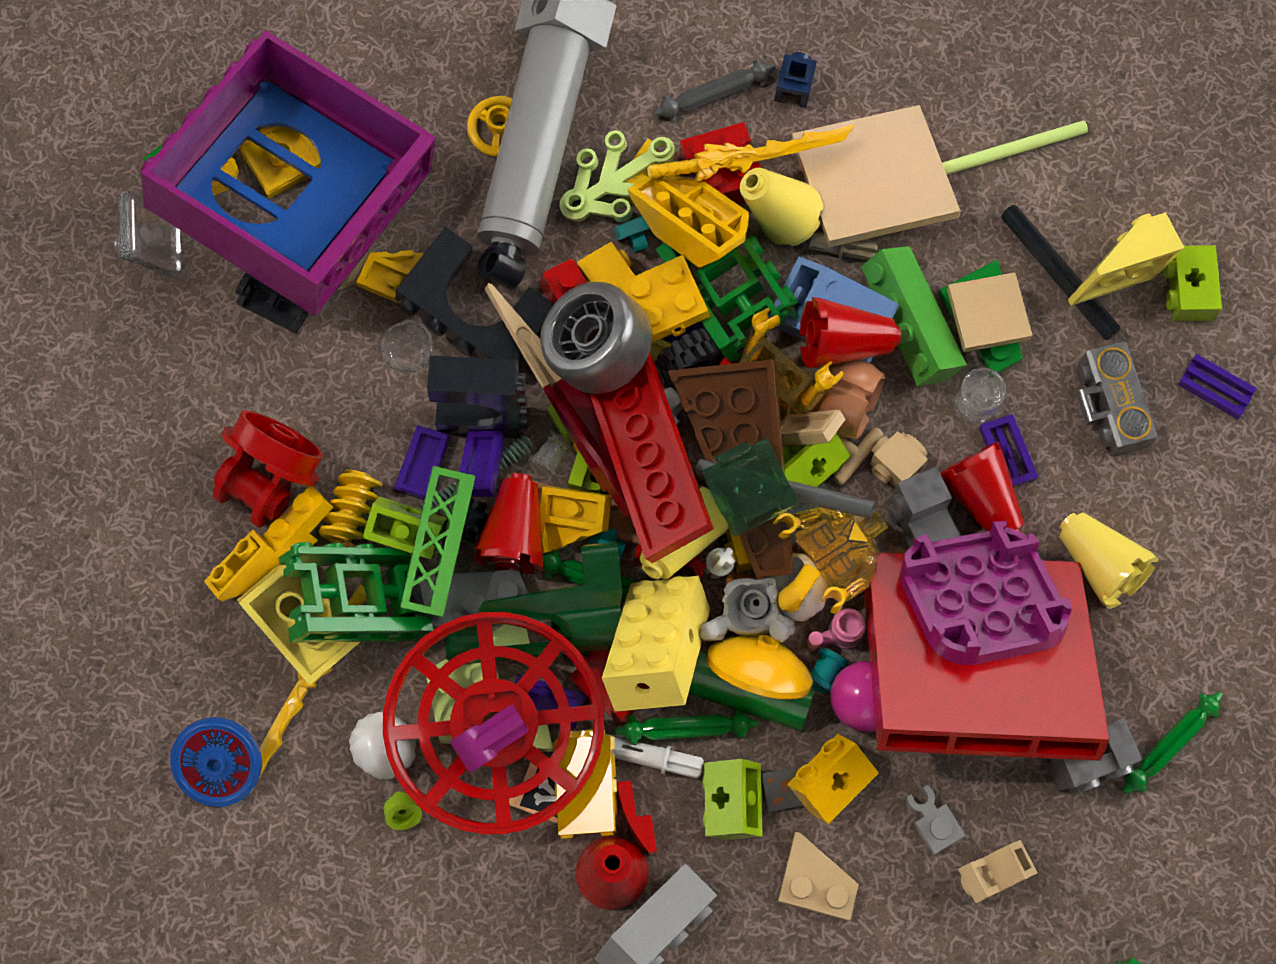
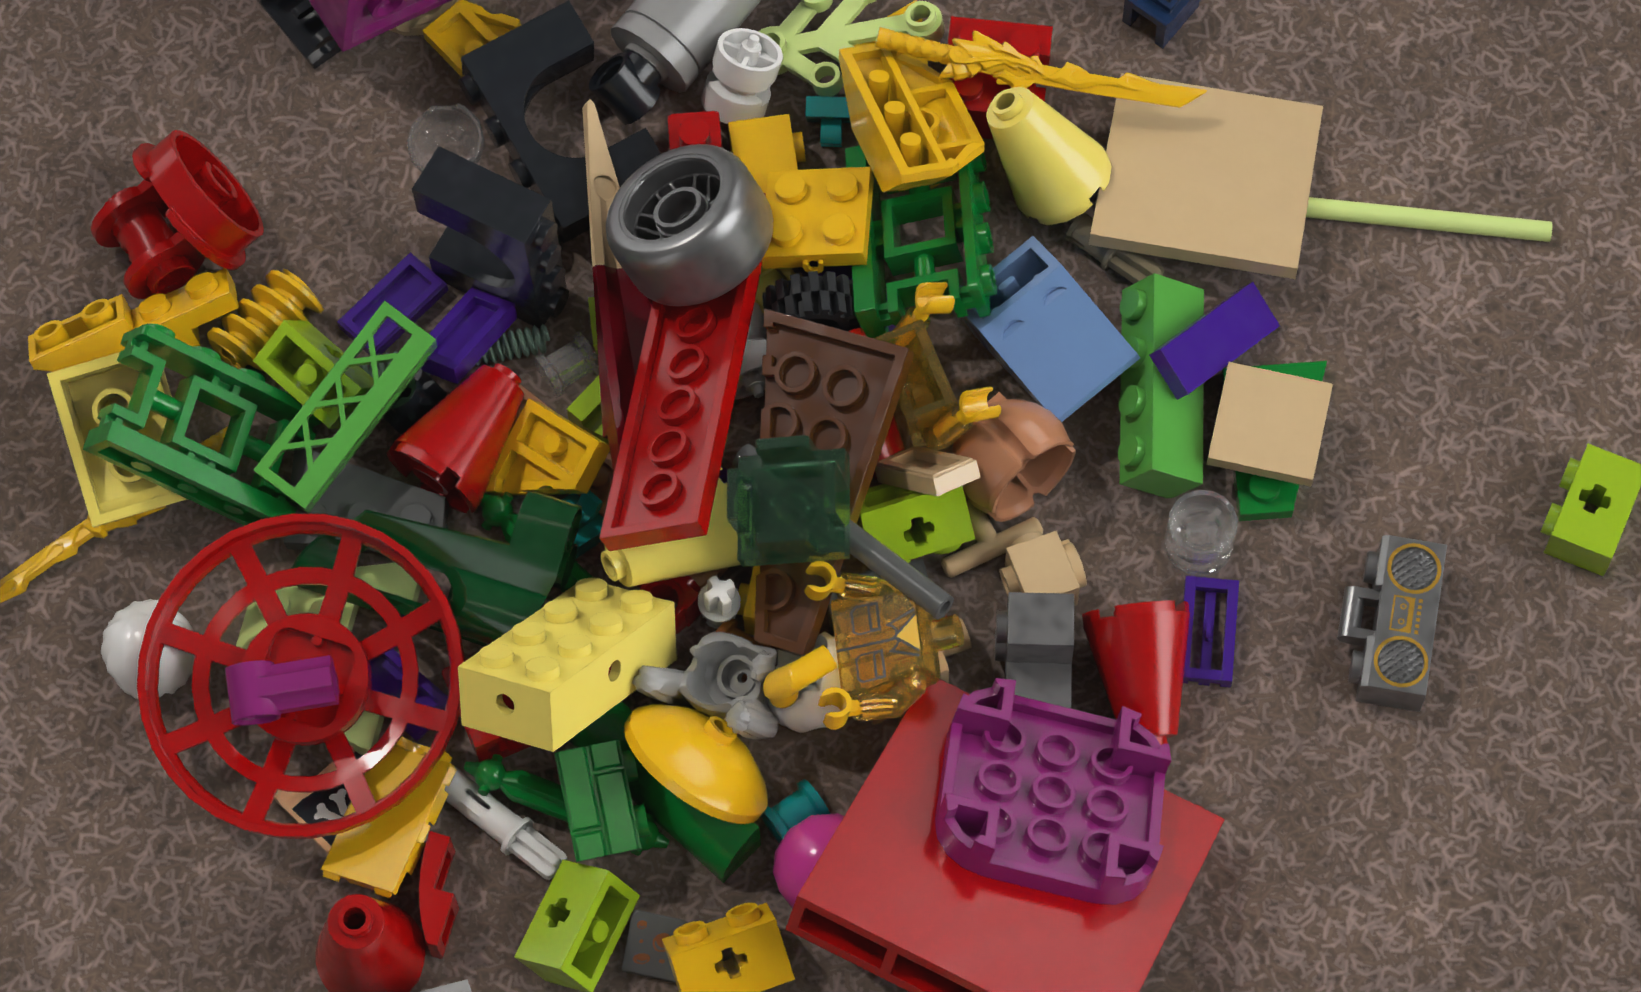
camera: 30 degrees right, 5 degrees down
(401, 812) = (129, 748): lime tile -> none
(570, 229) = (742, 75): none -> white wheel
(714, 719) = (600, 801): none -> green brick
(843, 631) = (845, 772): bright pink piece -> none
(844, 333) = (1038, 362): red cone -> none
(932, 275) = (1214, 340): none -> dark purple tile
(1058, 270) = (1410, 417): black axle -> none
(1106, 558) = (1269, 834): light yellow cone -> none
(1134, 259) = (1508, 435): light yellow slope -> none
(1223, 375) = (1533, 631): dark purple tile -> none

